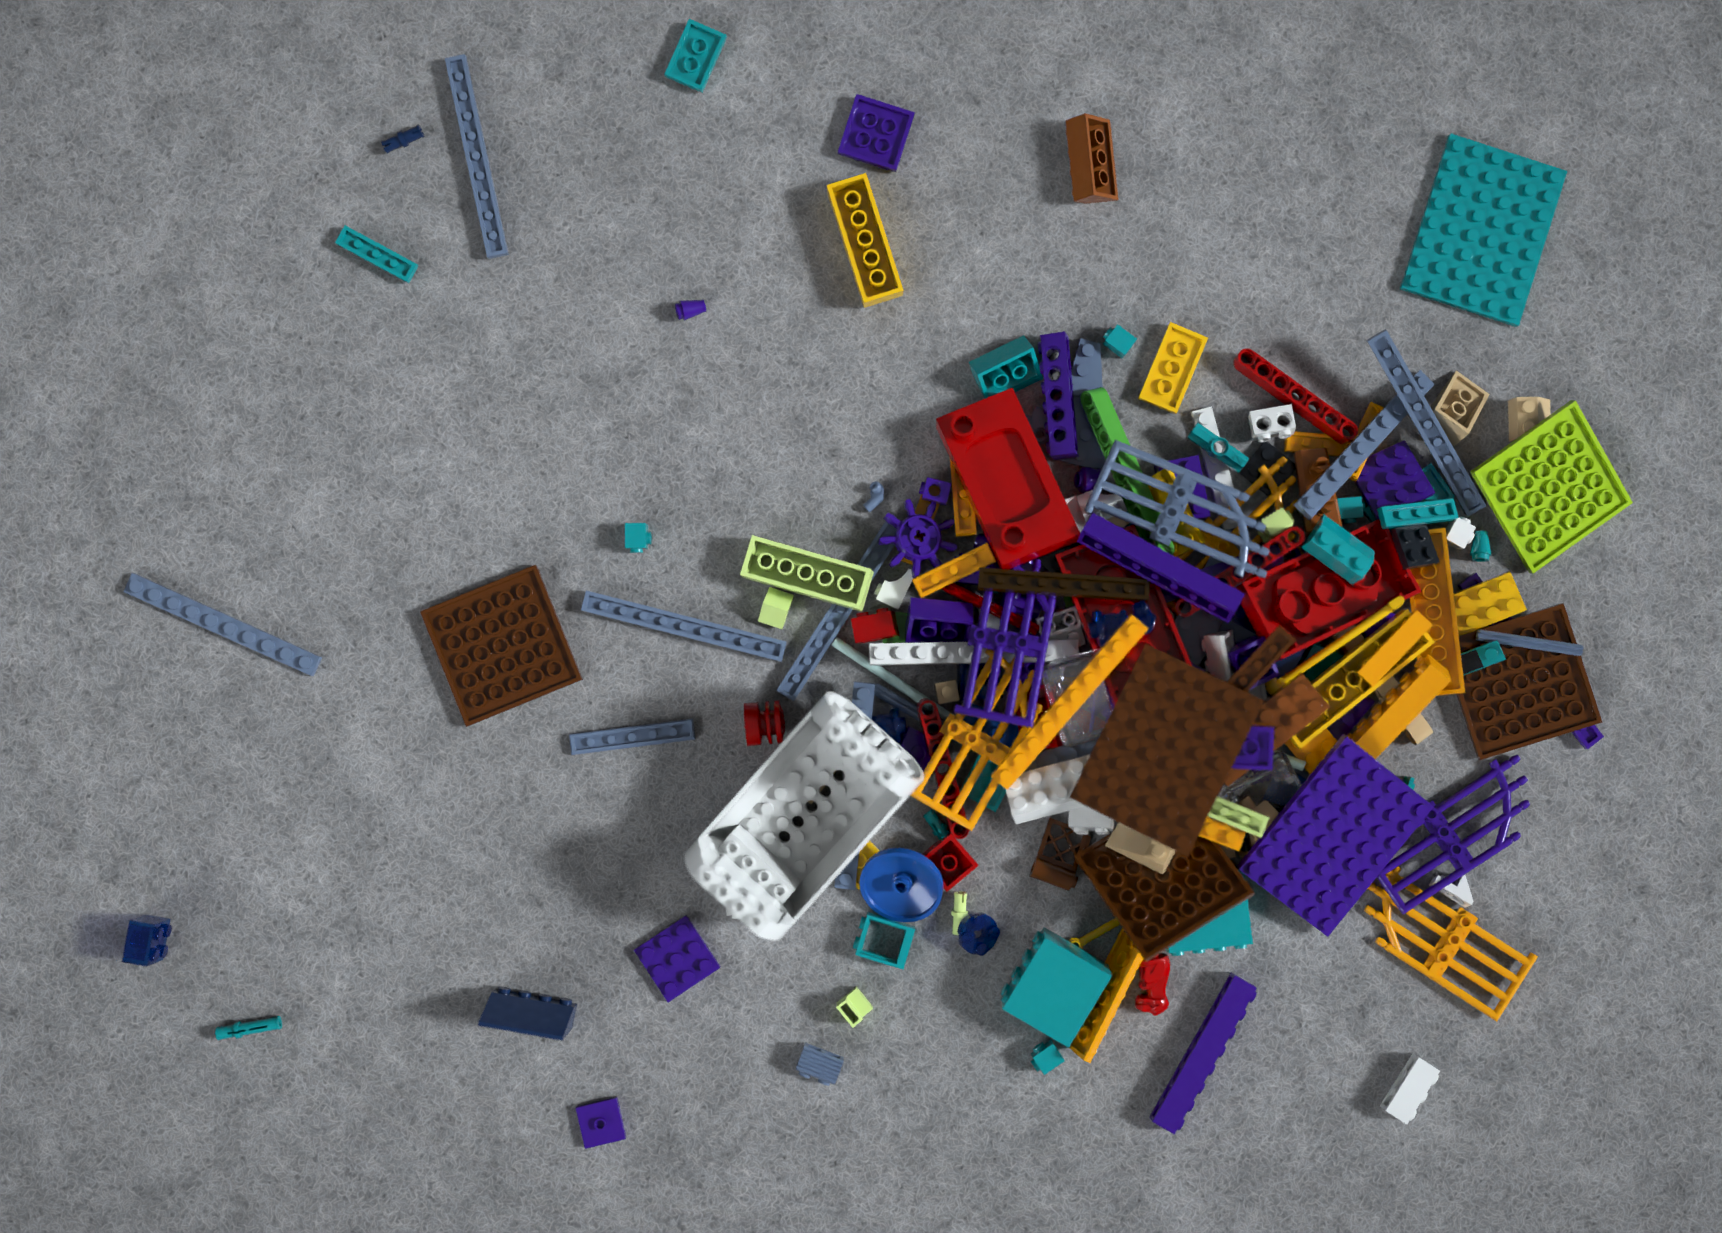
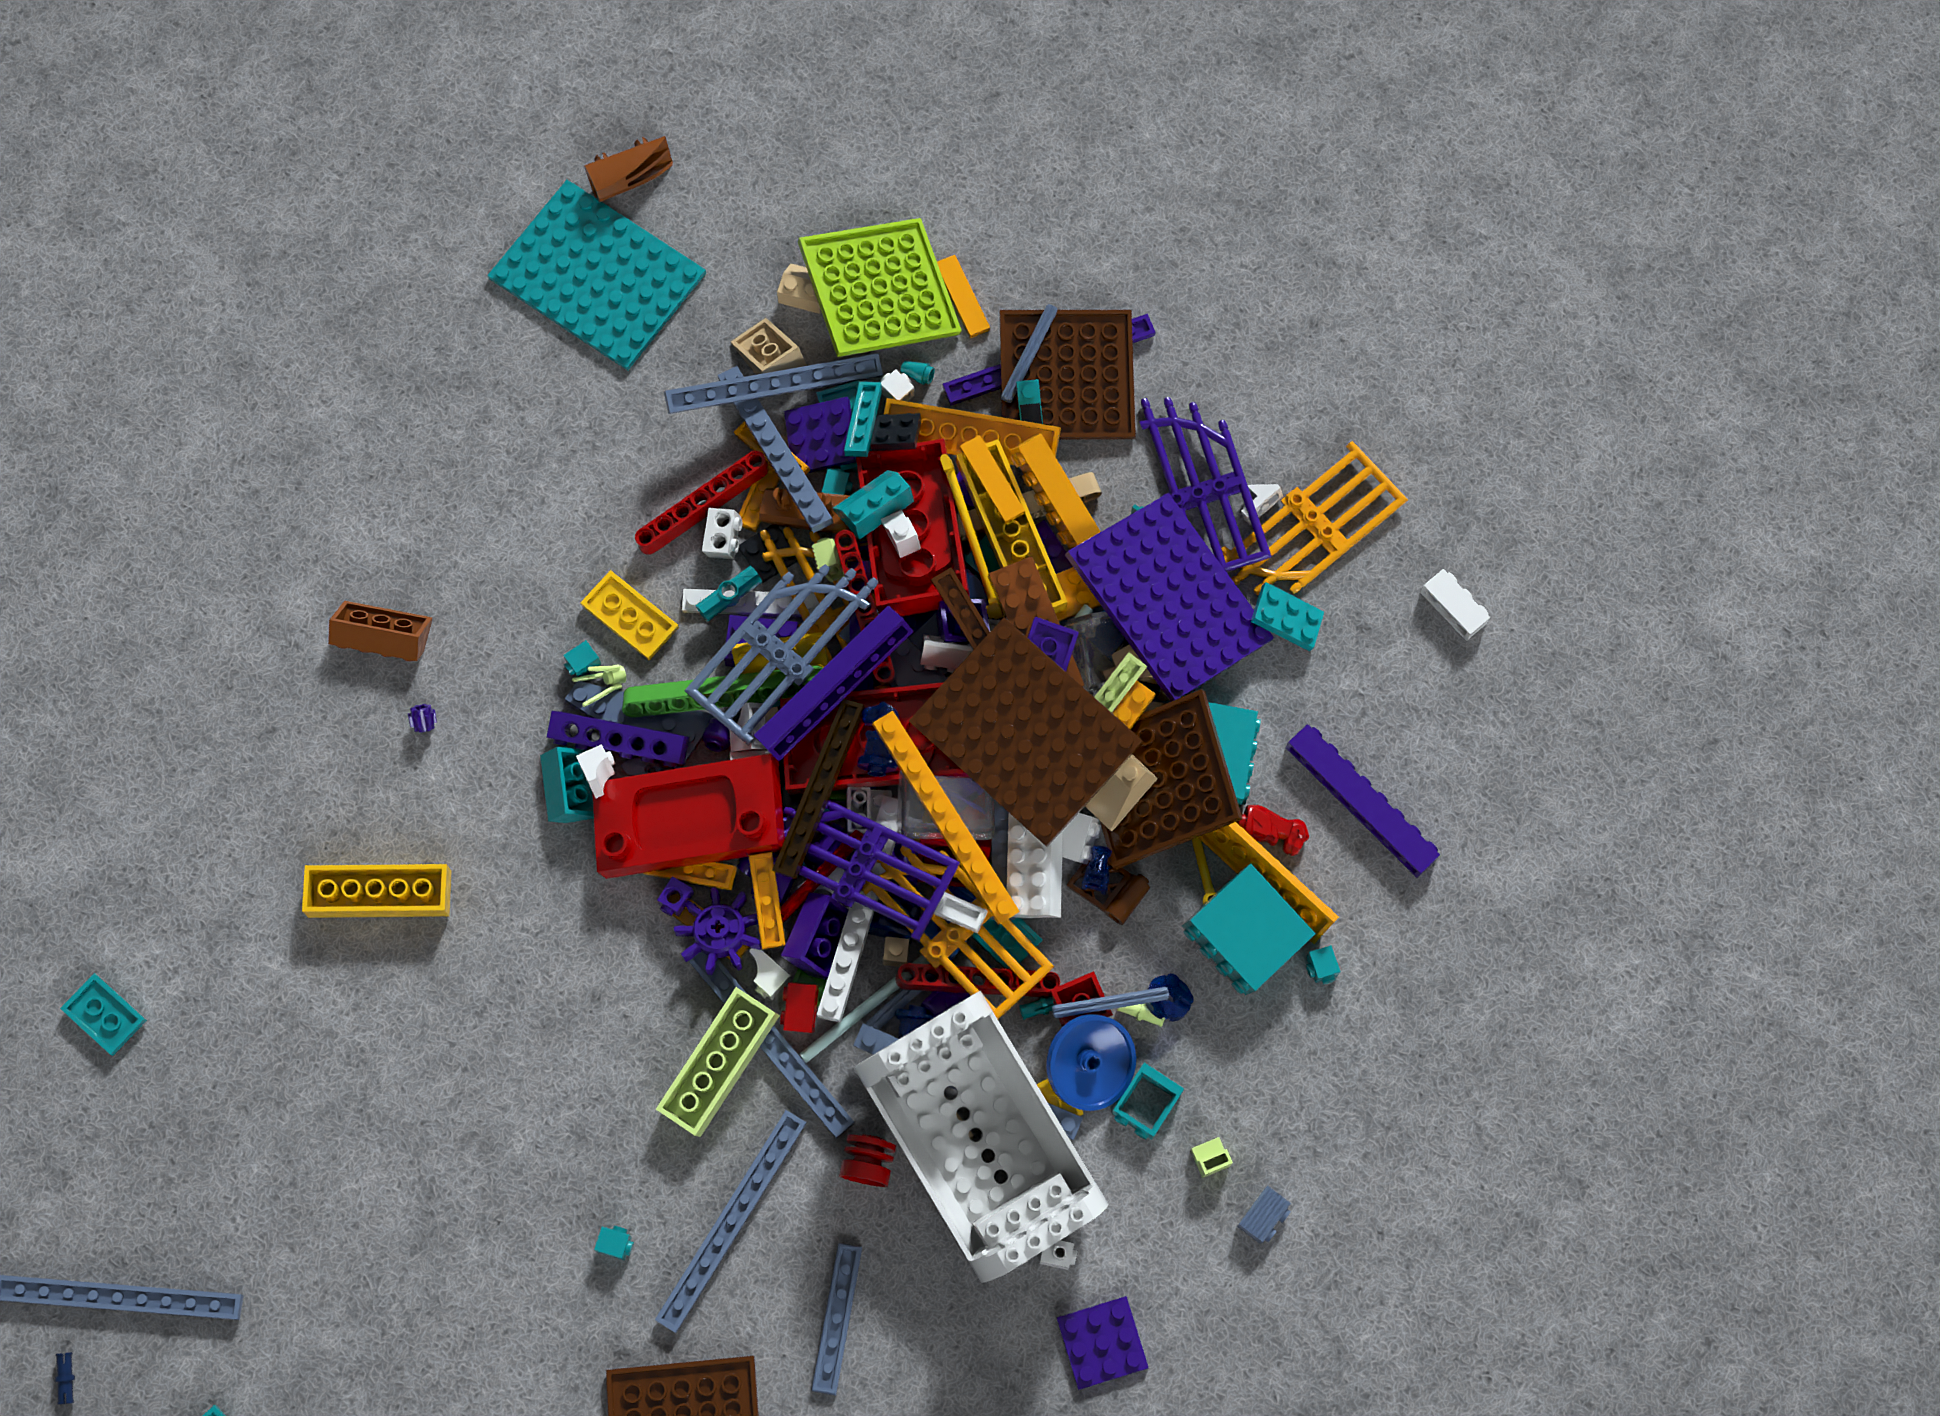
camera: 70 degrees left, 15 degrees down
(689, 308) = (380, 1107): dark purple cone -> none
(775, 608) = (745, 1110): yellowish green piece -> none
(876, 133) = (265, 845): dark purple plate -> none
(877, 496) = (658, 964): sand blue arm -> none
(955, 887) = (1110, 1002): none -> sand blue axle
(992, 740) = (961, 912): none -> white tile
(1024, 387) = (597, 768): none -> white arch
(1025, 224) = (422, 718): none -> dark purple gear
(1066, 843) = (1097, 871): none -> clear blue connector
(1112, 372) = (612, 676): none -> yellowish green plant
(1317, 583) = (901, 533): none -> white arch
(1351, 943) = (1287, 616): none -> teal plate
(1487, 603) = (977, 380): yellow plate -> none
(1567, 564) = (963, 297): none -> light orange tile
(1595, 222) = (628, 168): none -> dark orange piece

